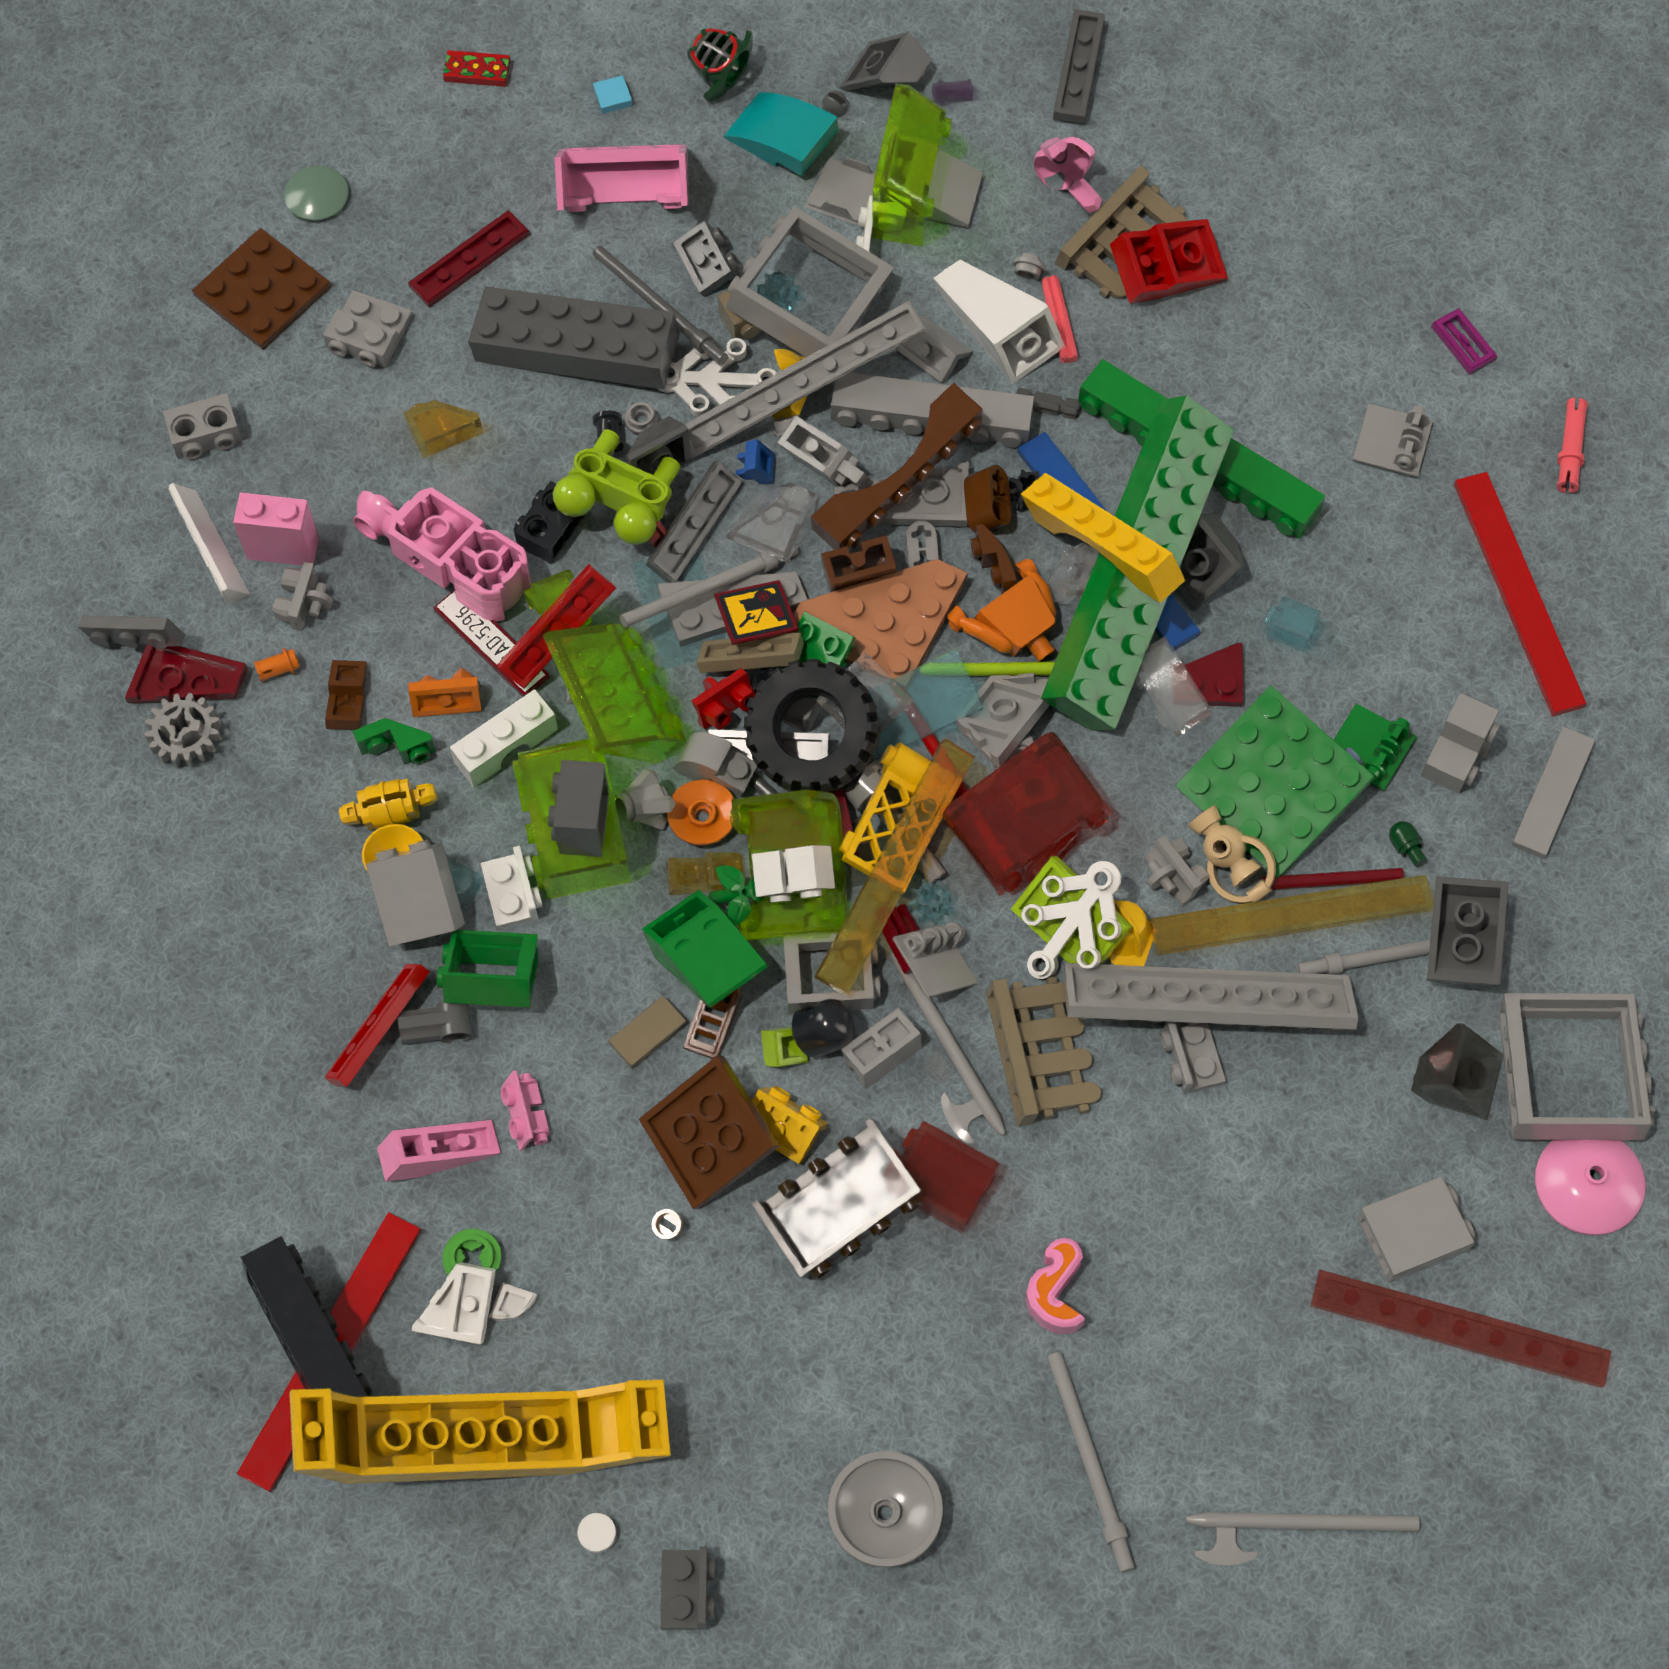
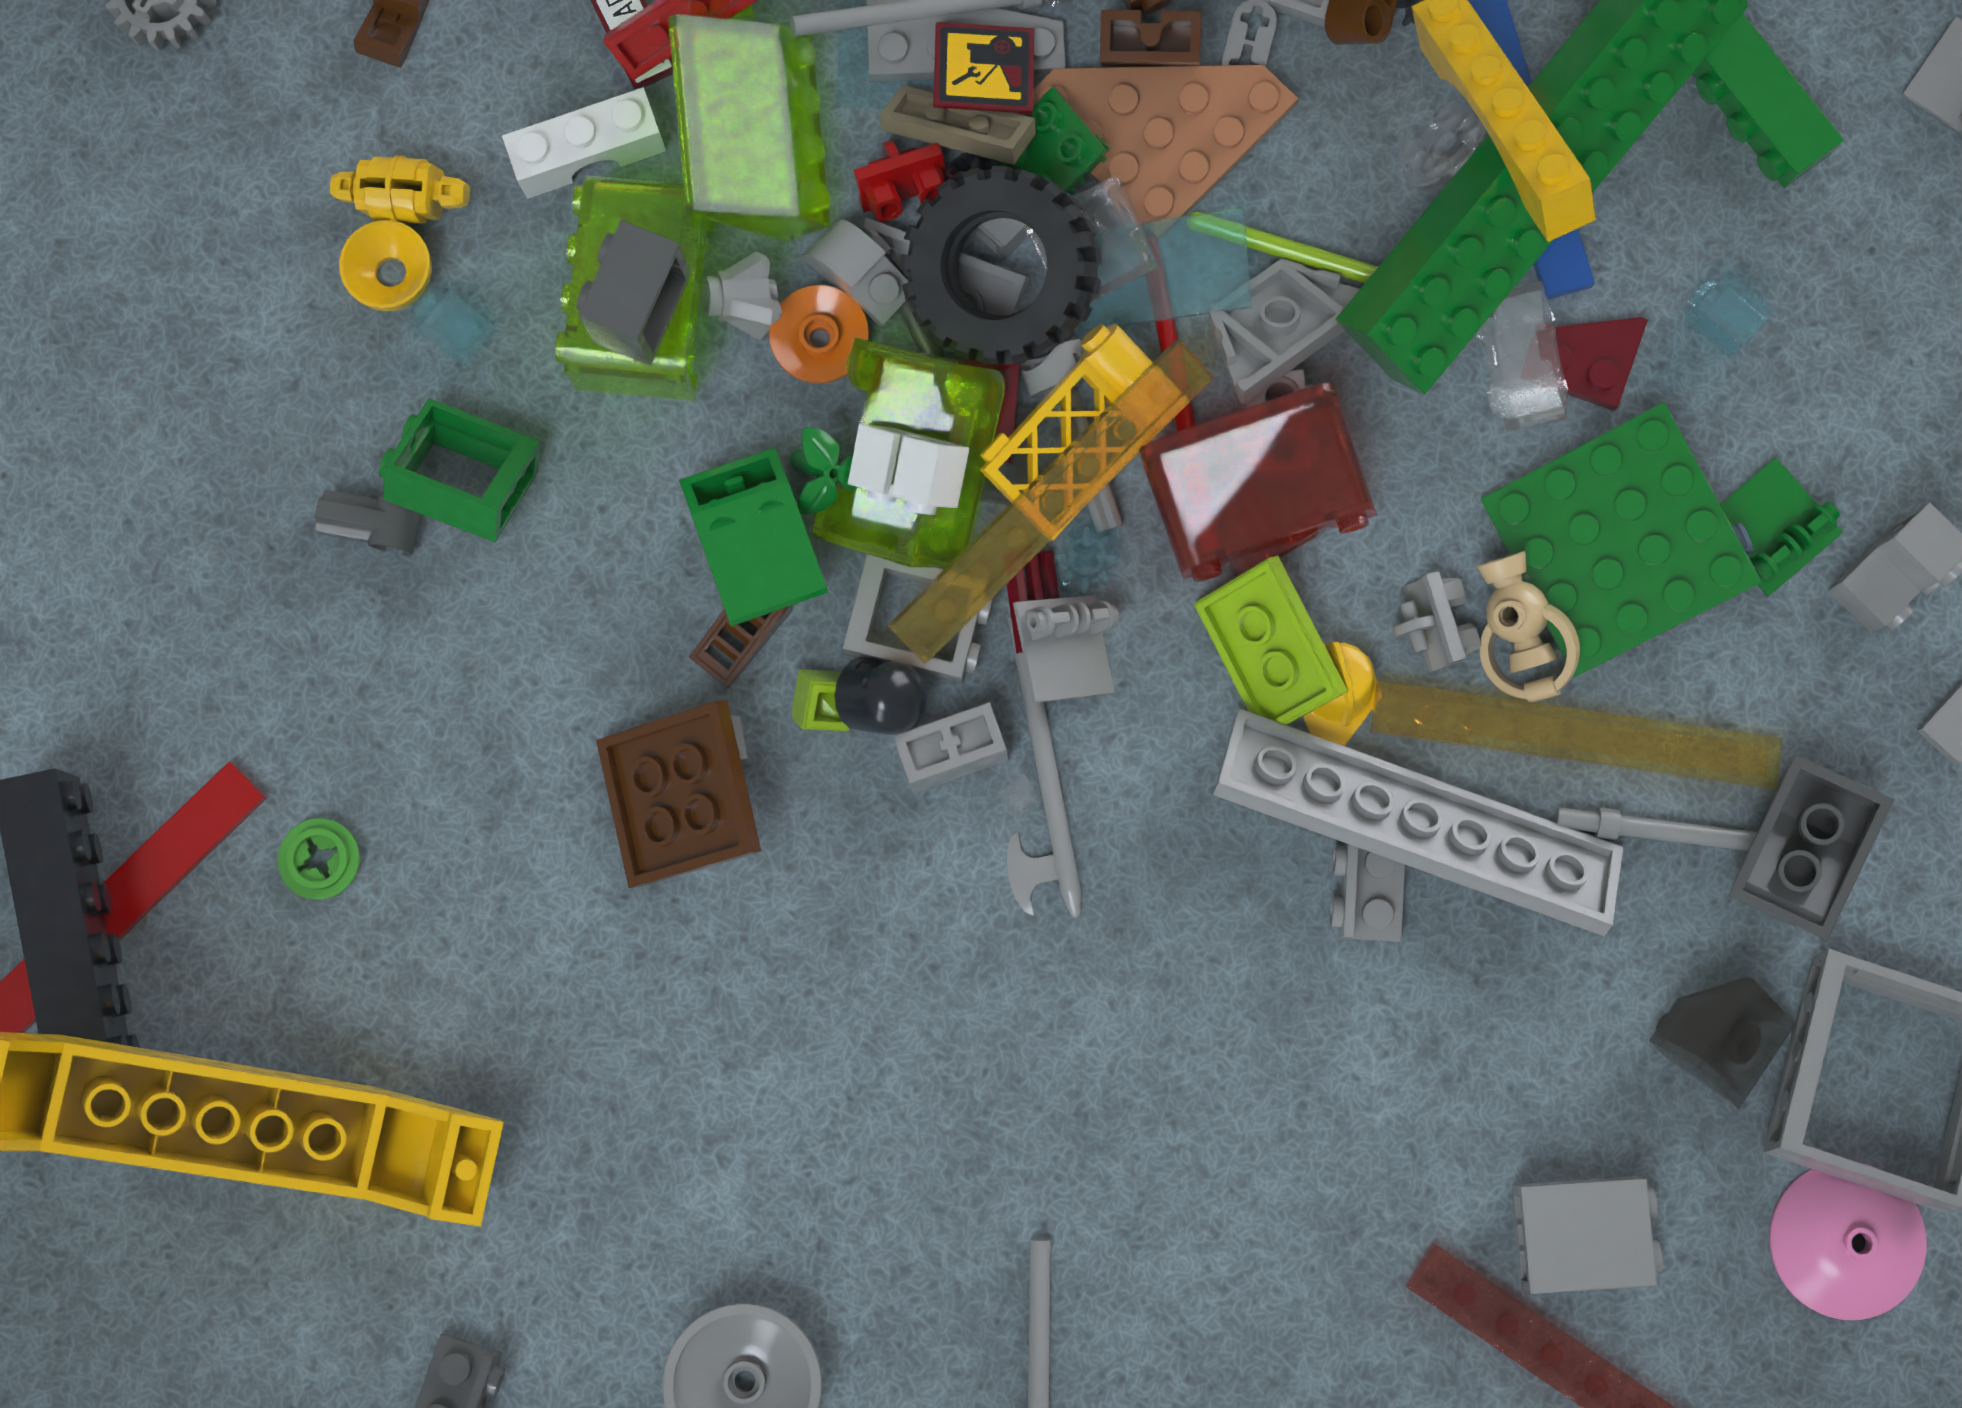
camera: 20 degrees right, 15 degrees up
(376, 1024) = (291, 498): red tile -> none
(411, 743) = (454, 109): green slope -> none
(415, 892) = (390, 332): light grey brick -> none
(435, 1148) = (318, 696): bright pink slope -> none
(445, 696) = (527, 57): orange tile -> none
(460, 1305) = (280, 922): white wing -> none
(510, 890) = (526, 363): white bracket -> none
(511, 1303) = (352, 935): white tile -> none
(525, 1125) = (446, 697): bright pink hinge -> none
(596, 1533) = (365, 1281): white tile -> none
(647, 1032) = (648, 621): dark tan tile -> none
(663, 1231) = (580, 905): hinge -> none
(691, 874) = (781, 417): clear yellow slope -> none
(790, 1123) = (790, 808): yellow bracket -> none
(841, 1201) = (821, 948): window -> none
(949, 1173) = (970, 950): clear red brick -> none
(992, 555) = (1342, 80): reddish brown slope -> none
(1014, 618) = (1343, 185): orange torso -> none
(1021, 1069) = (1151, 838): dark tan fence -> none
(1047, 1283) = (1063, 1147): bright pink animal -> none
(1077, 916) = (1276, 652): white plant -> none
(1209, 560) = (1645, 185): dark grey slope -> none
(1336, 878) = (1657, 702): dark red bar -> none
(1407, 839) = (1775, 680): dark green cylinder -> none

